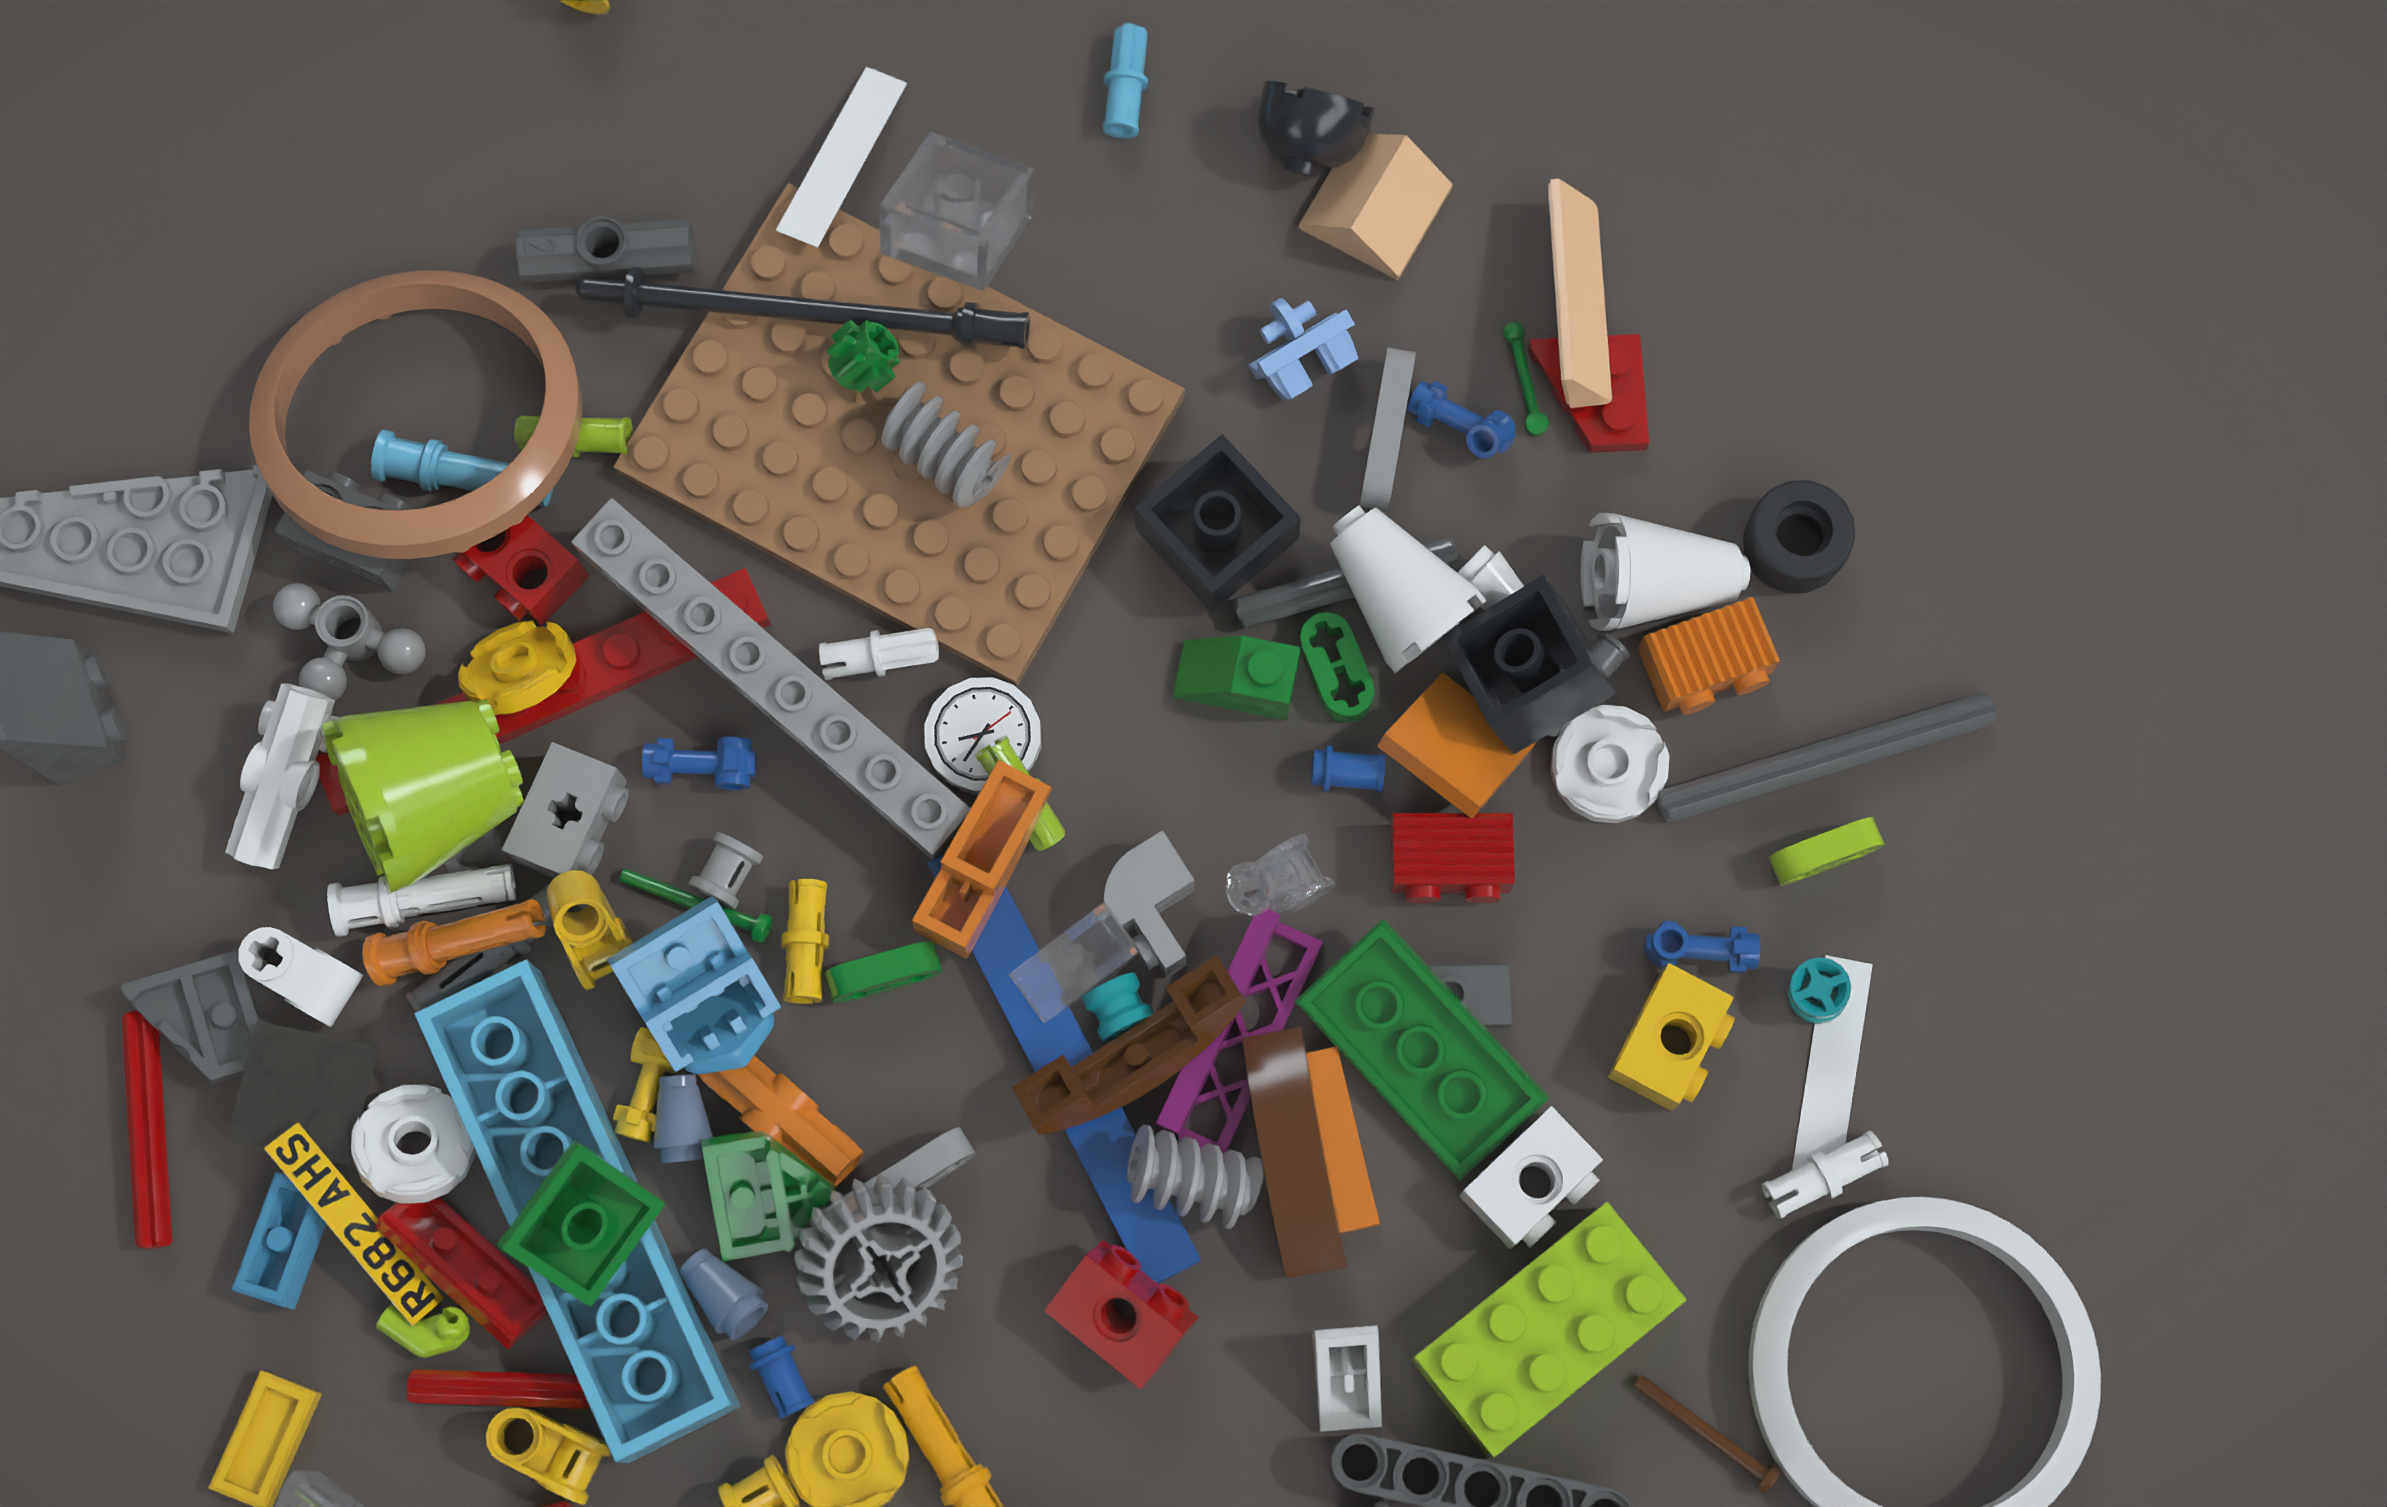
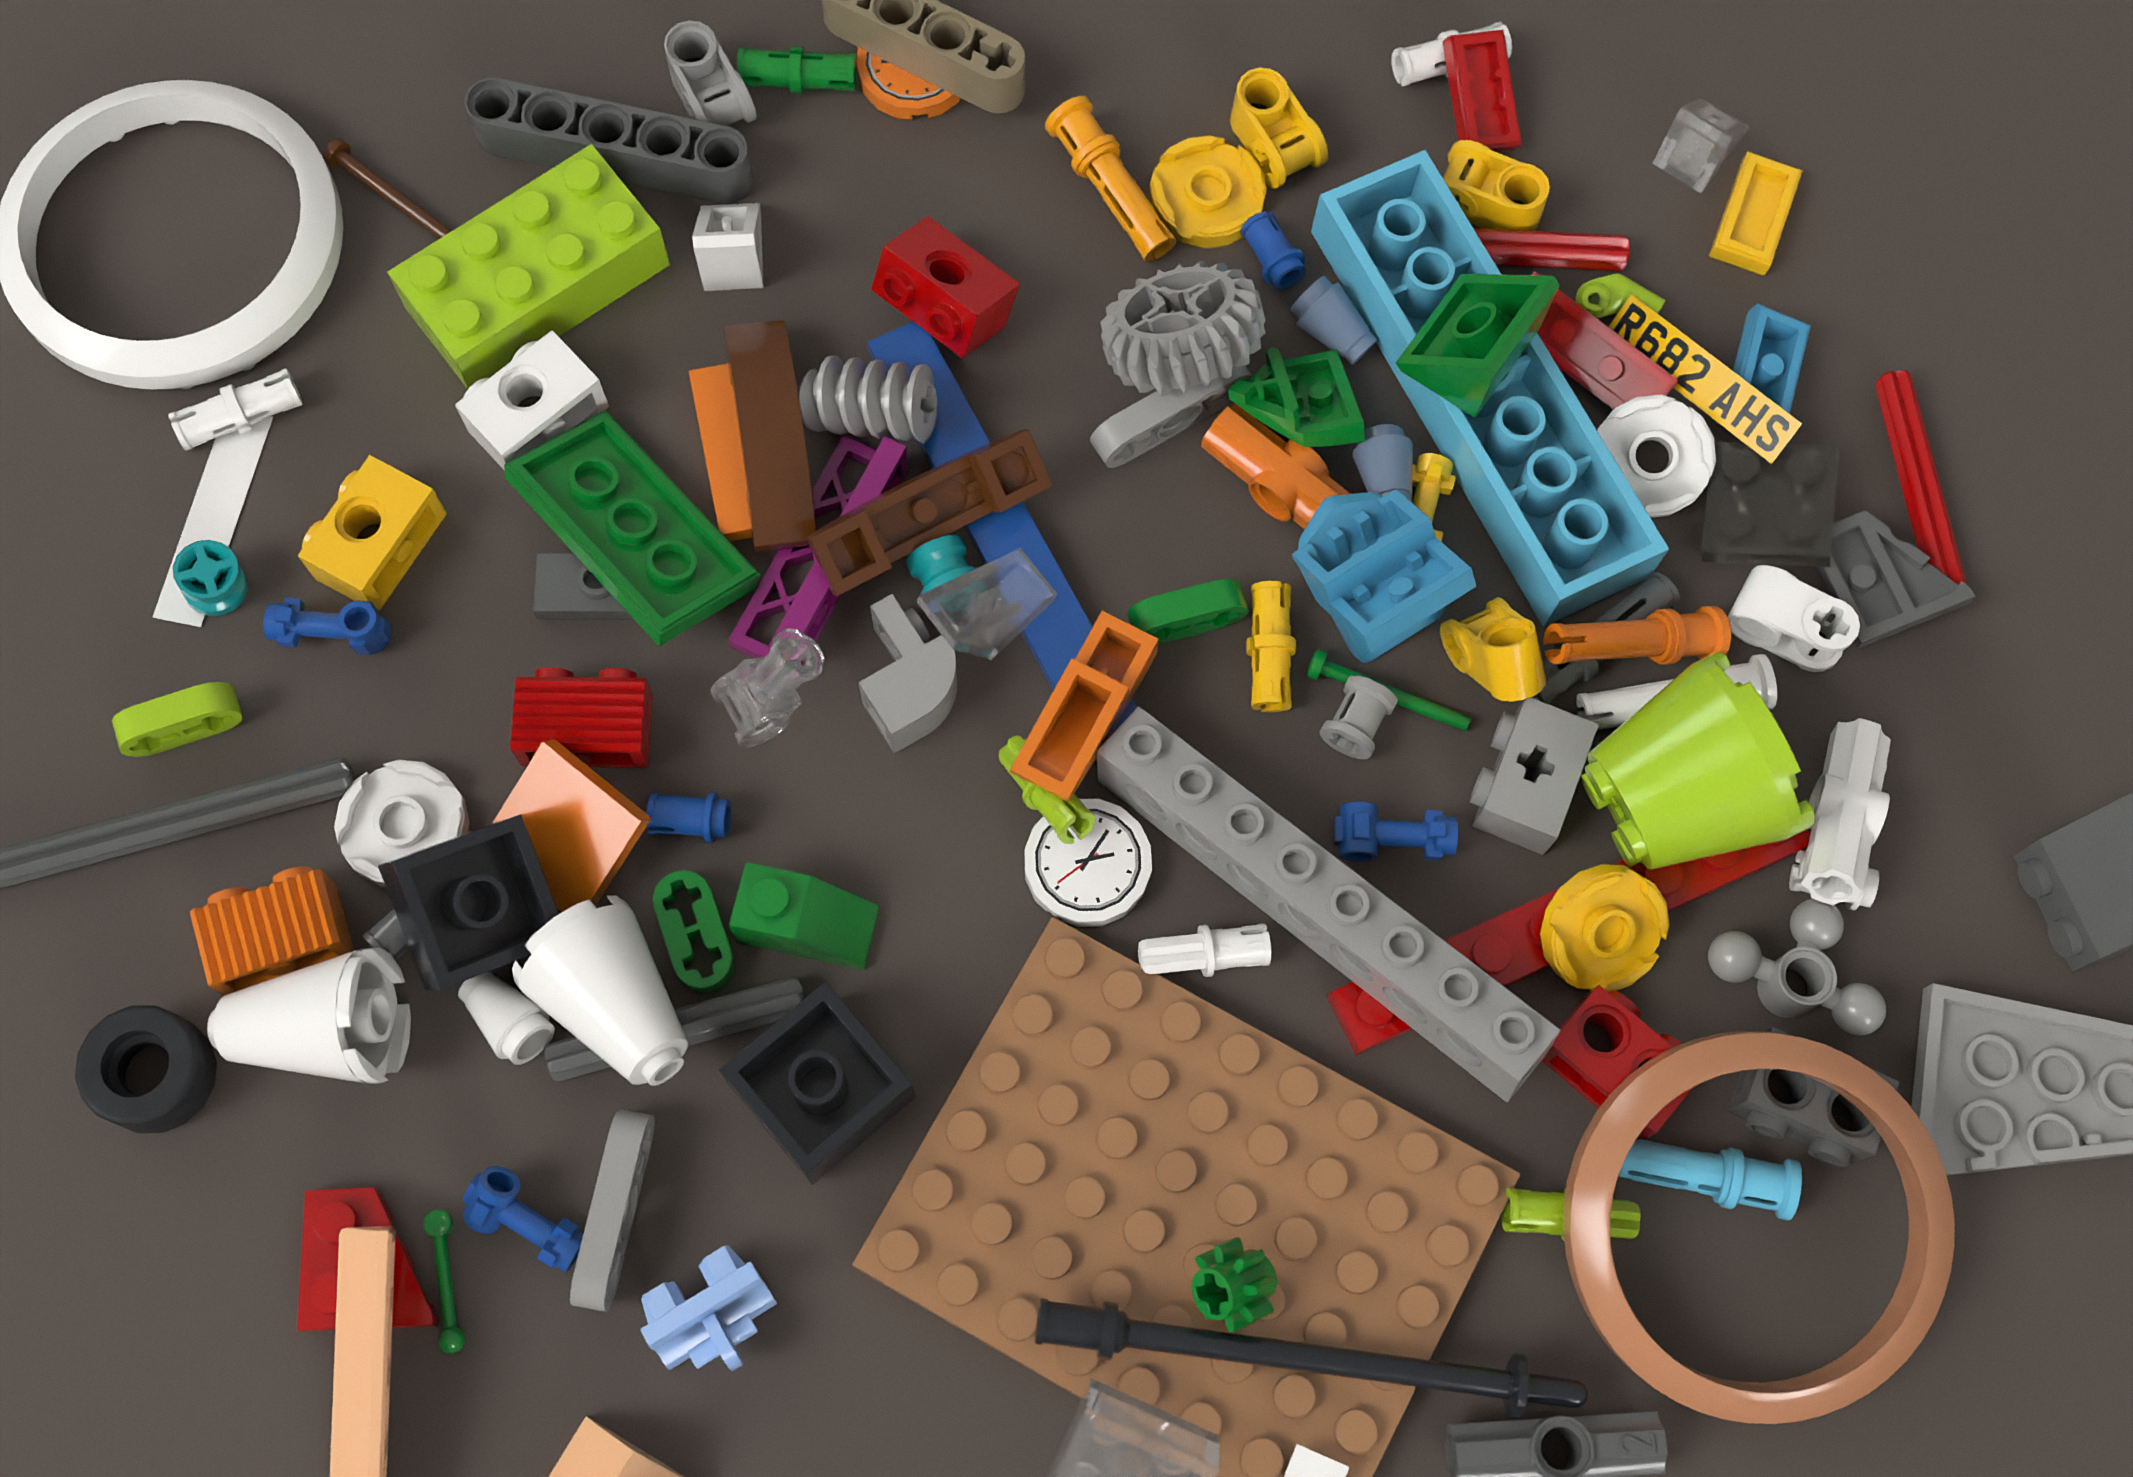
camera: 175 degrees right, 5 degrees down
(941, 449) = (1136, 1168): light grey piece -> none

